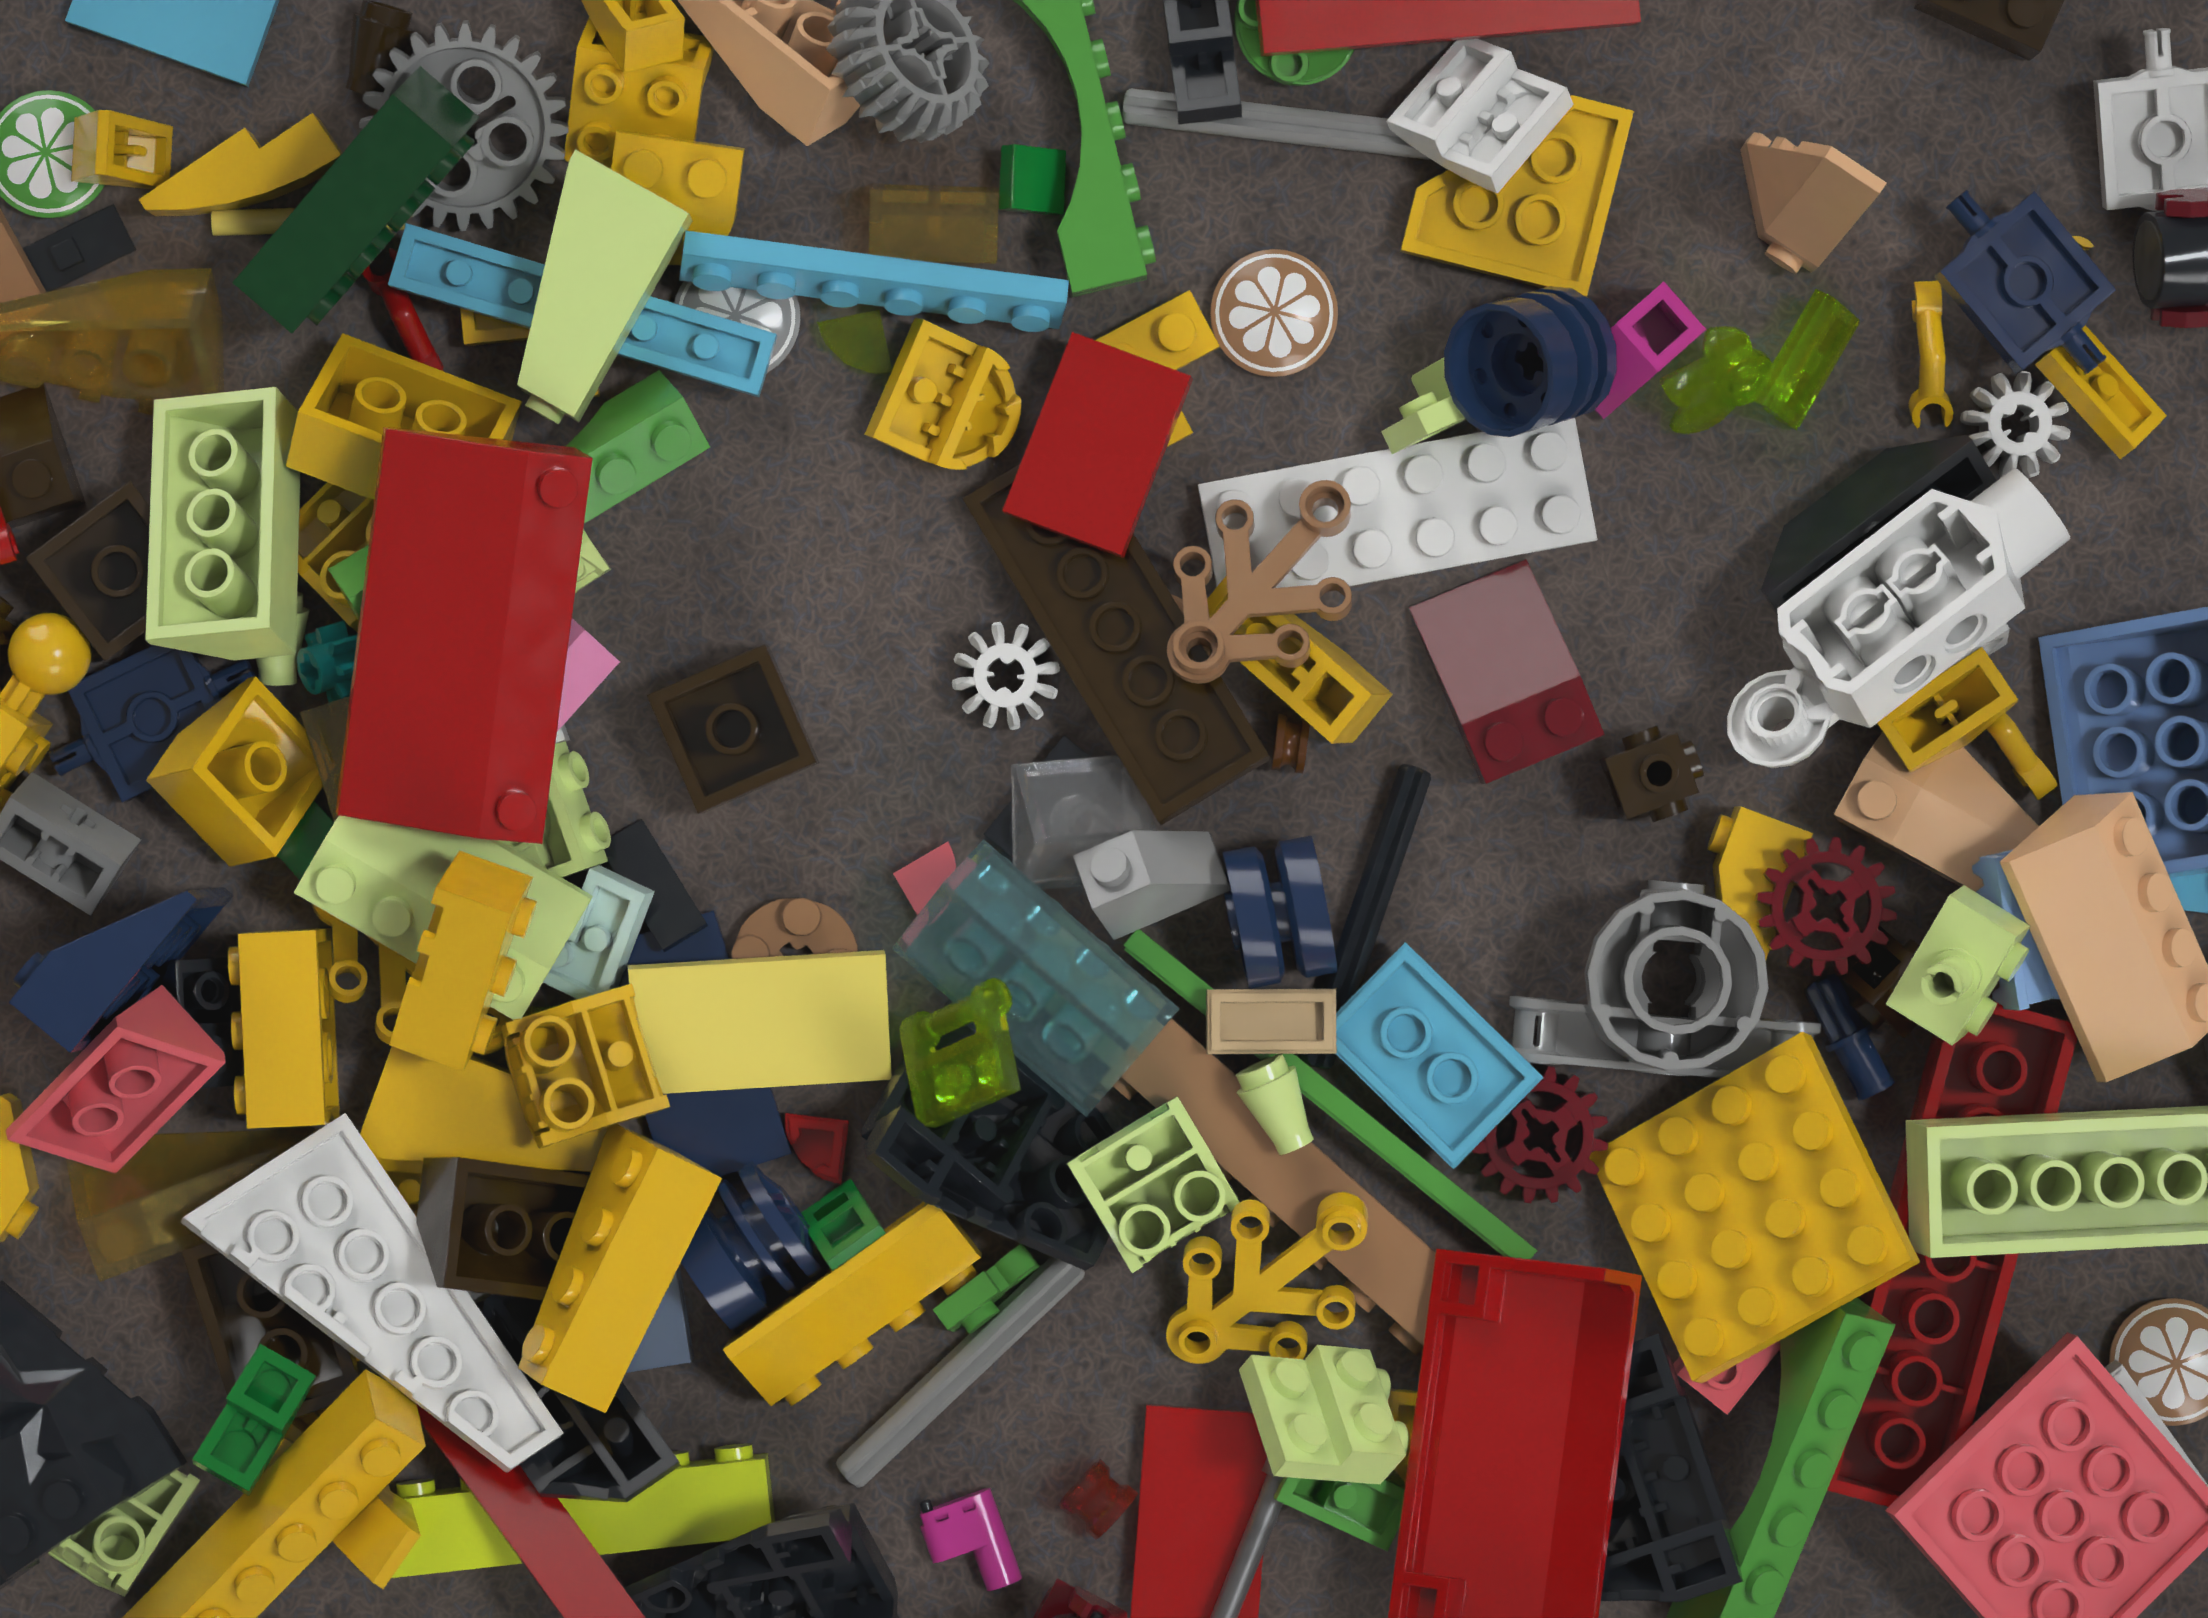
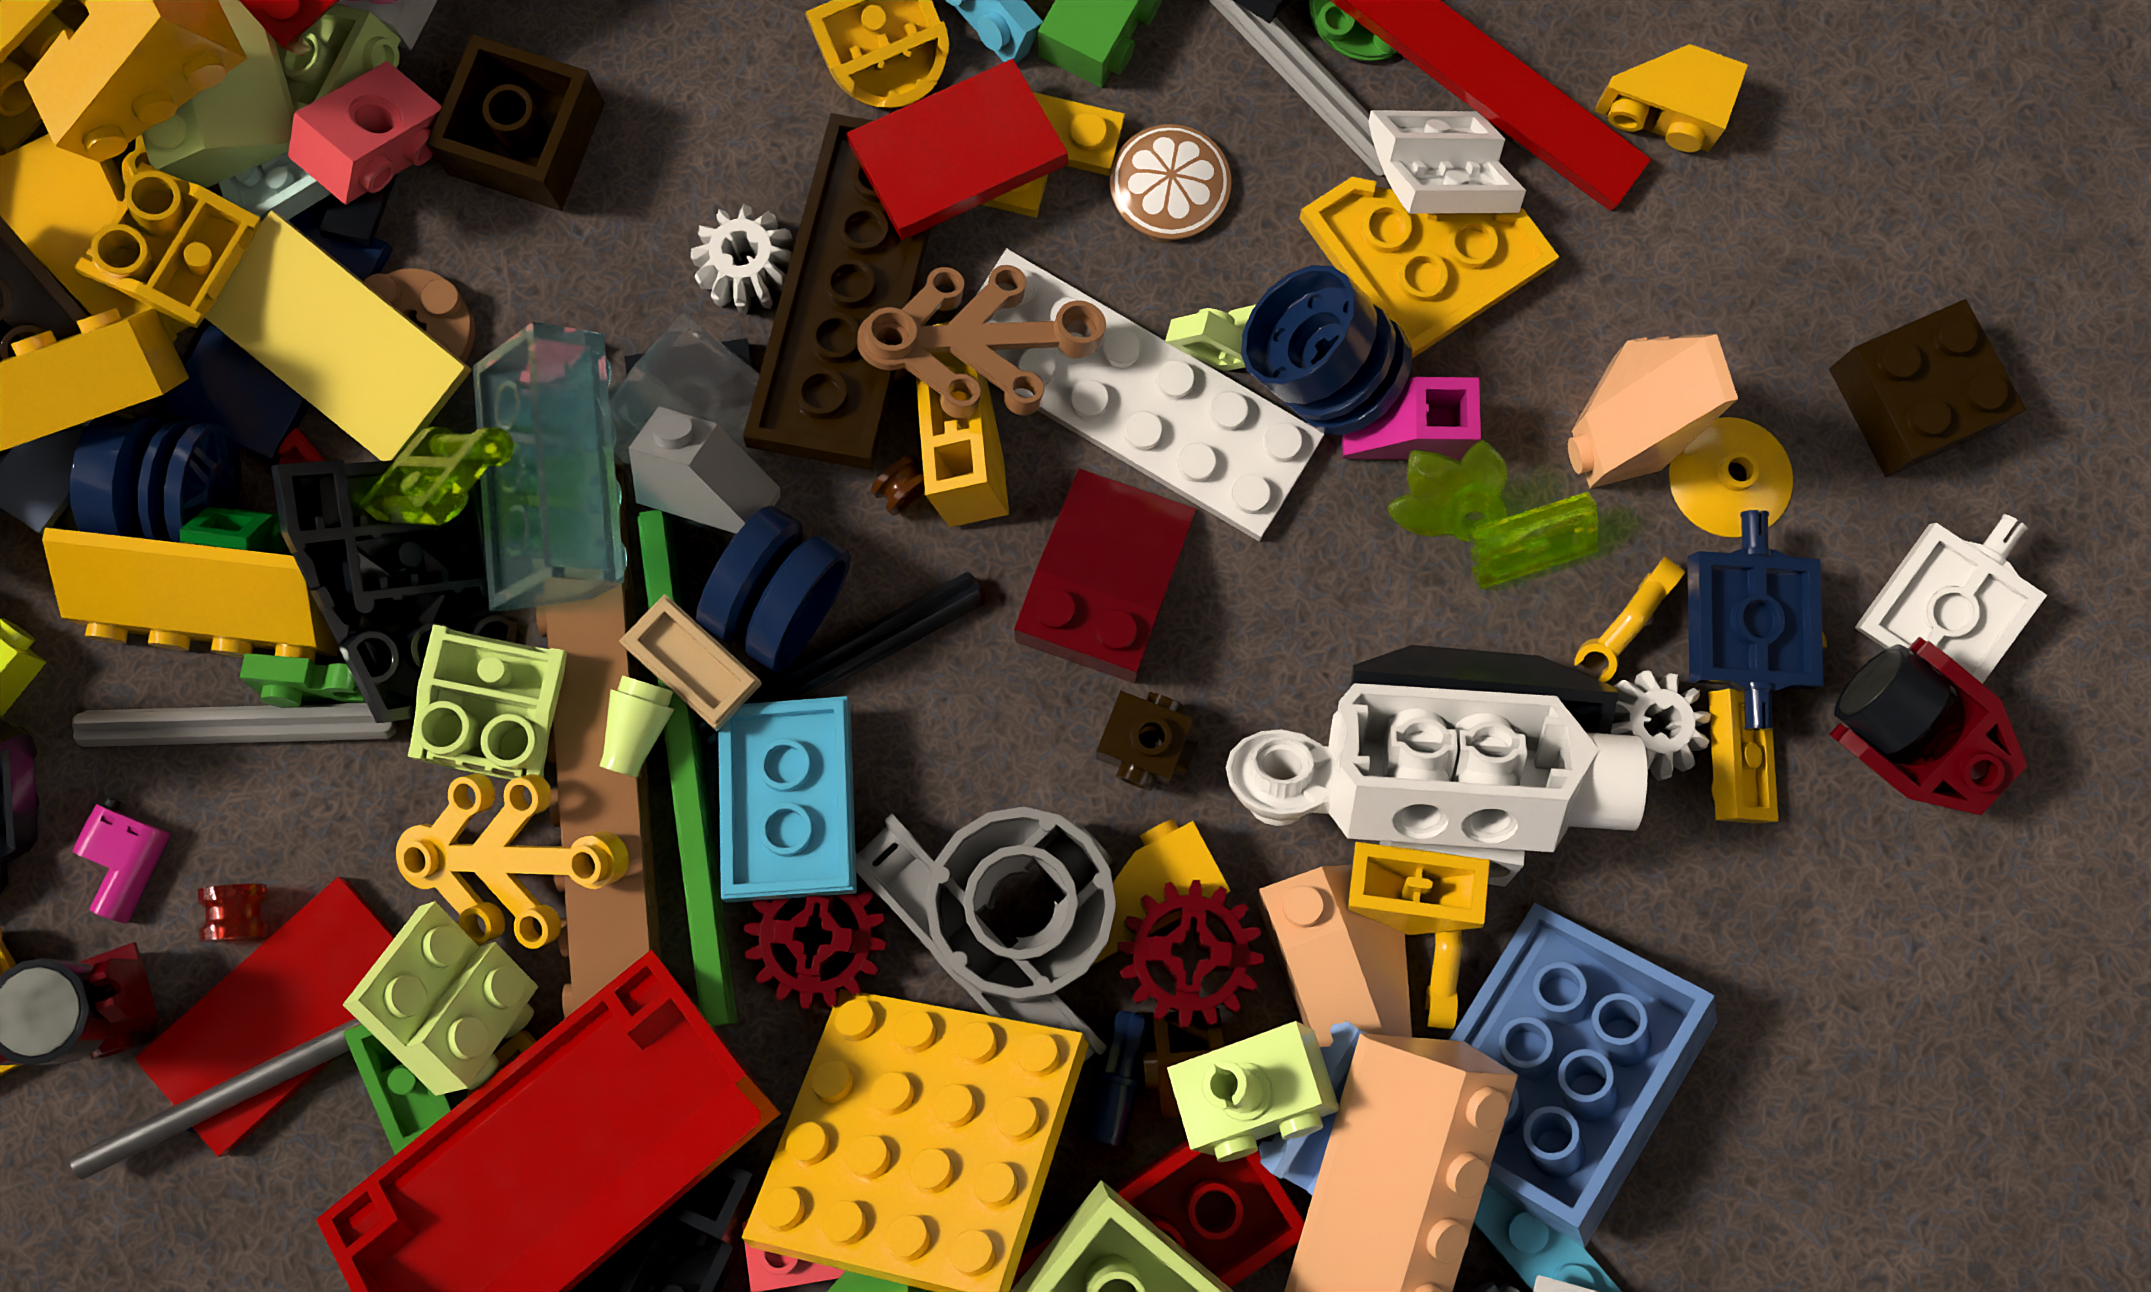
camera: 40 degrees right, 10 degrees down
(640, 878) = (364, 132): none -> coral brick
(1949, 170) = (1710, 494): none -> yellow dish

